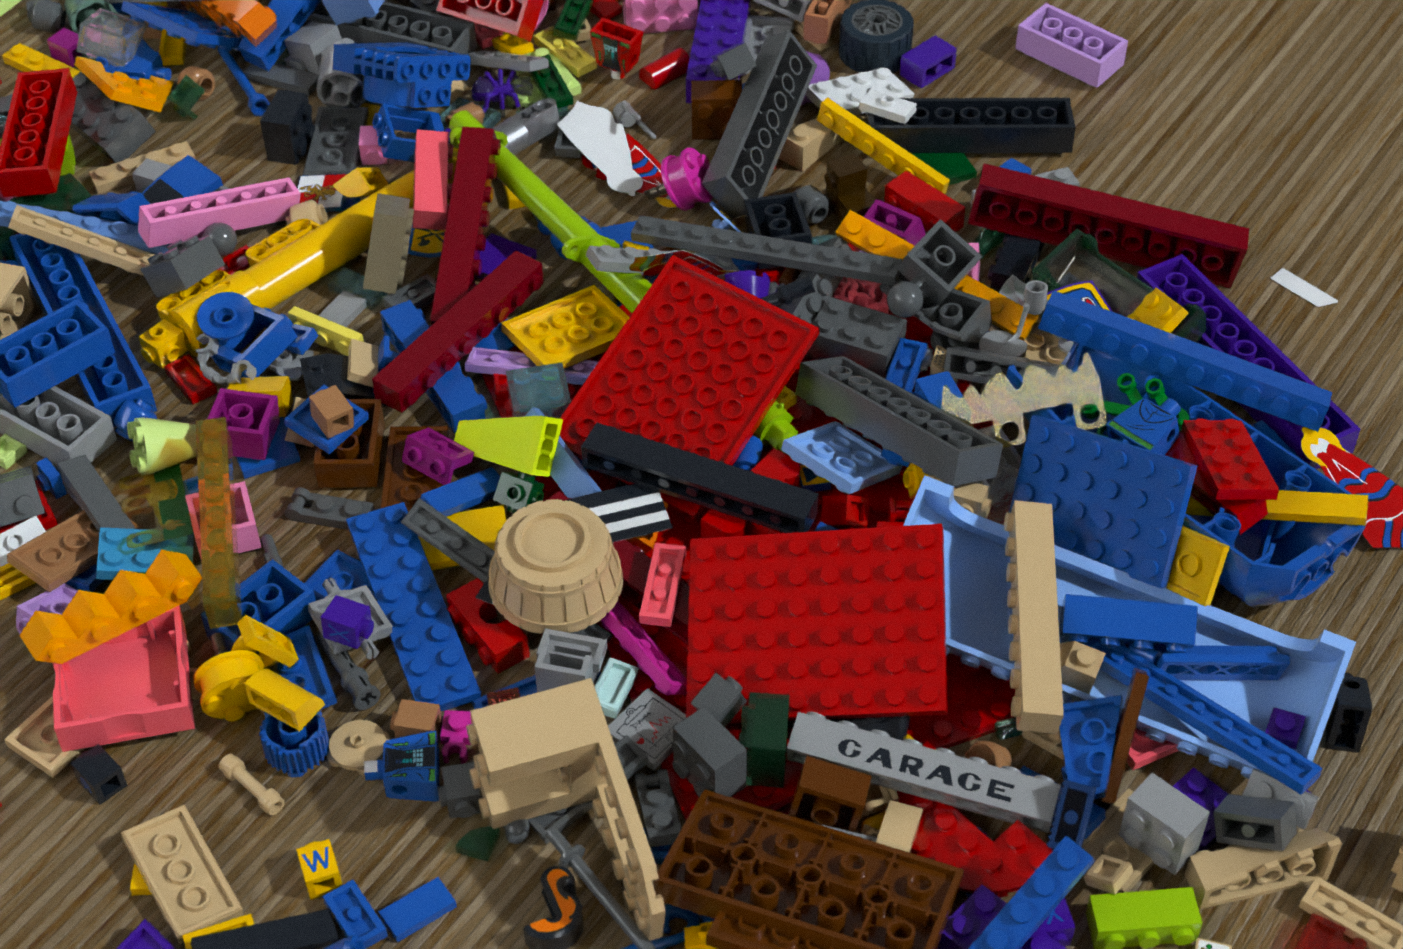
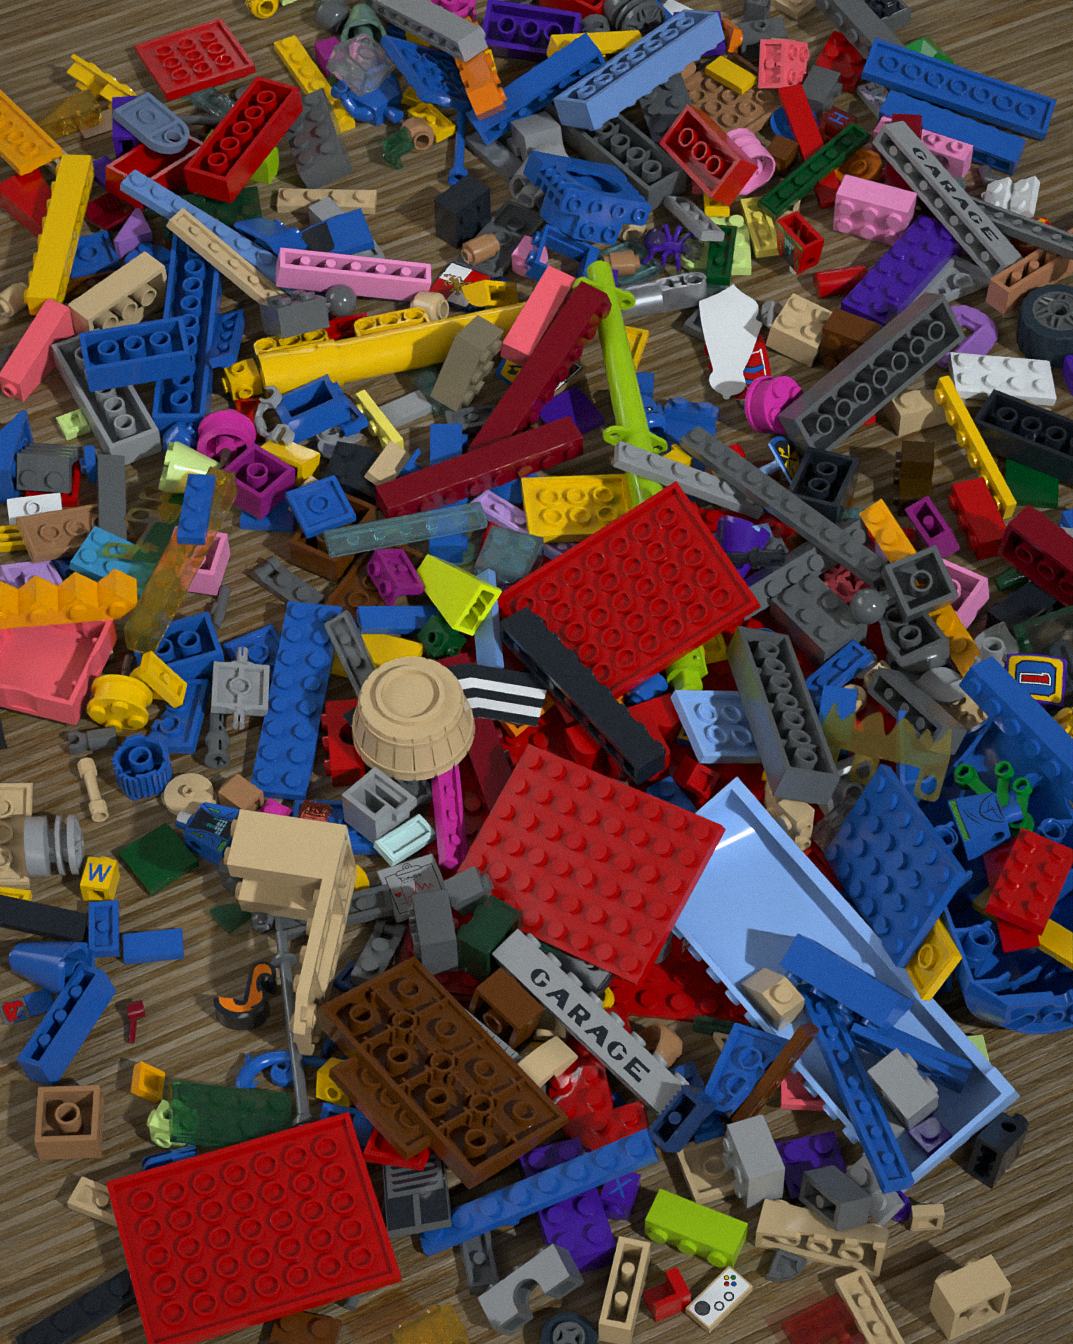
camera: 30 degrees right, 5 degrees up
(119, 87) = (347, 125): light orange wing -> none
(127, 313) = (227, 339): none -> blue plate
(183, 396) = (225, 436): none -> dark pink wheel
(211, 462) = (196, 509): none -> blue plate
(217, 68) = (438, 122): none -> yellow plate
(220, 736) = (92, 740): none -> dark grey bar
(225, 307) = (295, 369): blue dish -> none
(251, 855) = (53, 845): none -> light grey wheel
(282, 698) = (143, 731): yellow brick -> none
(325, 151) = (480, 249): none -> medium nougat brick
(331, 411) = (321, 503): medium nougat brick -> none
(347, 622) = (228, 691): dark purple brick -> none
(365, 821) = (158, 858): none -> dark green tile
(421, 408) = (405, 529): none -> clear light blue tile
(622, 213) = (699, 413): none -> blue plate
(654, 264) = (698, 493): red sticker -> none
(662, 585) = (489, 772): coral plate -> none
(664, 115) = (799, 330): none -> tan brick
(732, 61) = (877, 305): dark grey brick -> none
(813, 203) = (874, 474): dark grey head -> none
(887, 106) = (1003, 406): white plate -> none
(1033, 618) = (763, 939): tan brick -> none
(1108, 874) = (687, 1179): tan tile -> none
(1242, 912) = (785, 1266): none -> dark grey tile
(1248, 690) = (903, 1088): none -> light grey brick
(1332, 802) = (926, 1216): none -> tan plate

